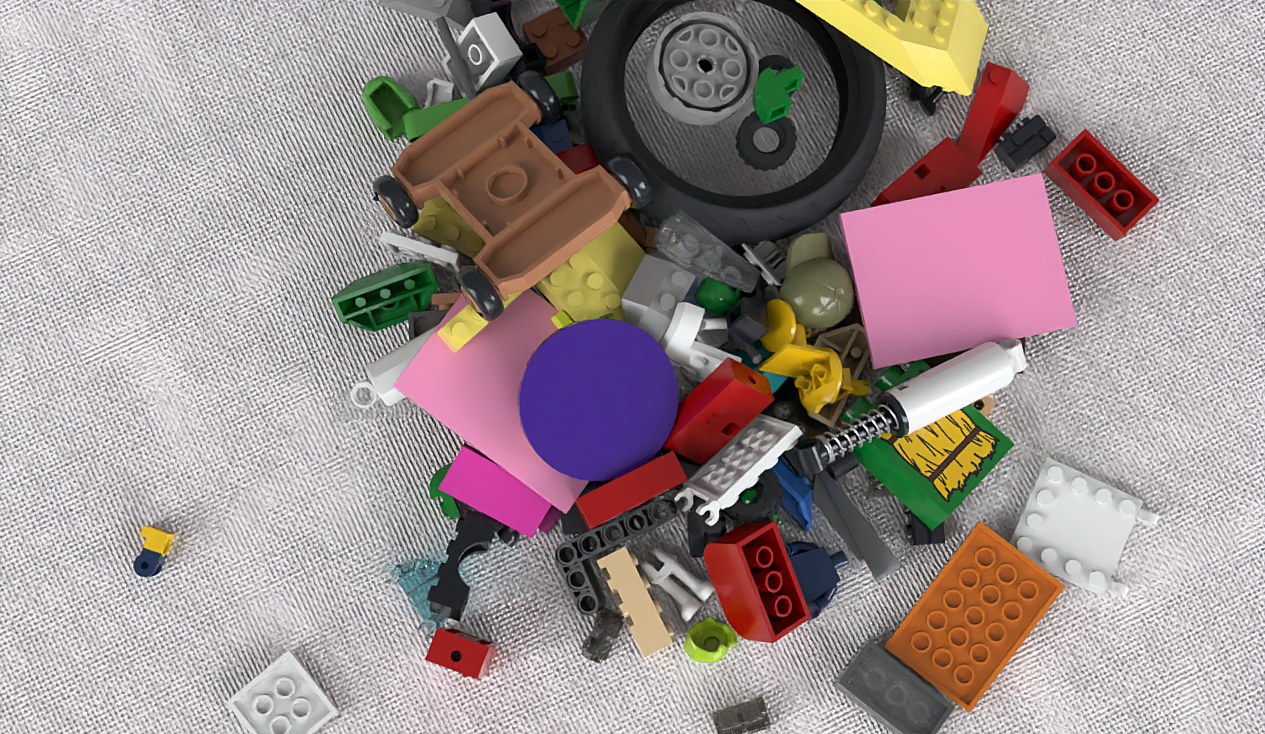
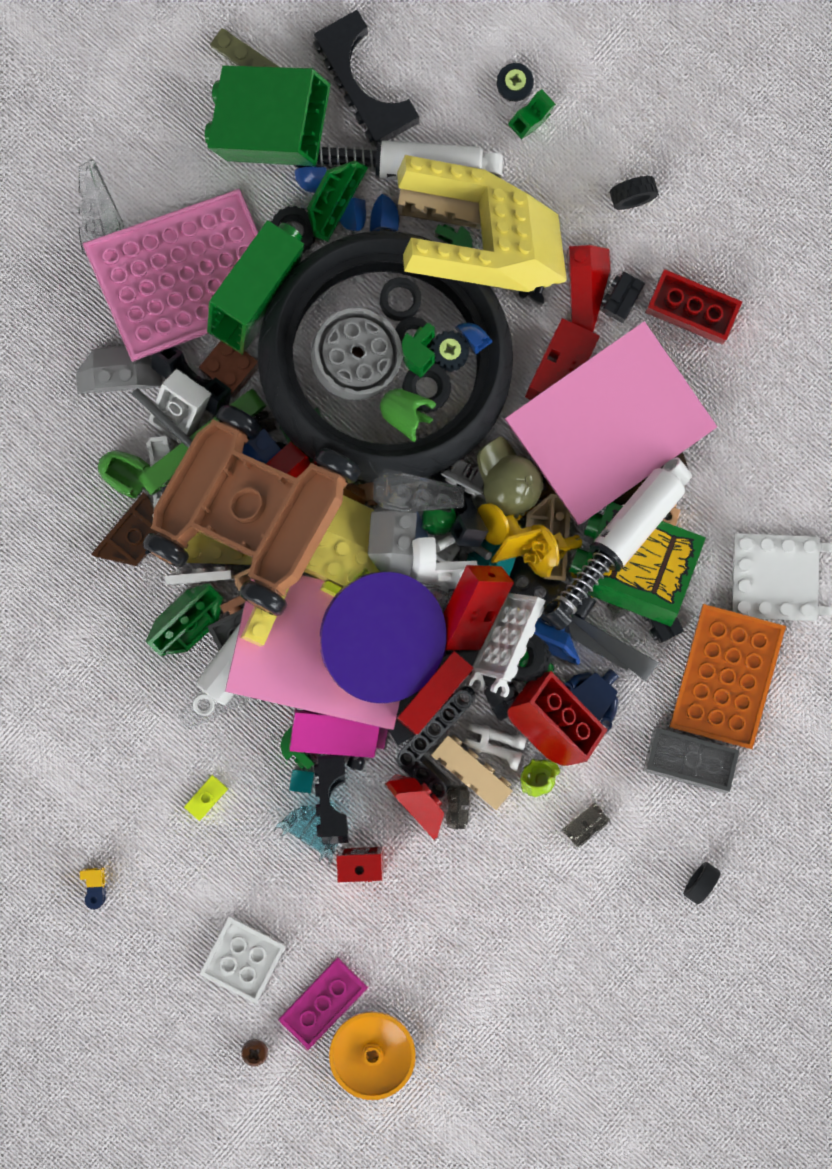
camera: 20 degrees left, 5 degrees up
(323, 504) = (206, 797): none -> neon yellow plate
(354, 181) = (126, 539): none -> reddish brown wing
(437, 530) = (301, 781): none -> teal slope
(559, 609) = (418, 802): none -> red wedge
(725, 150) = (399, 410): none -> bright green hair
(779, 13) = (403, 283): none -> black tyre
(805, 120) = (448, 358): none -> black wheel
(843, 107) = (474, 336): none -> blue brick
(1083, 33) = (634, 192): none -> black tyre

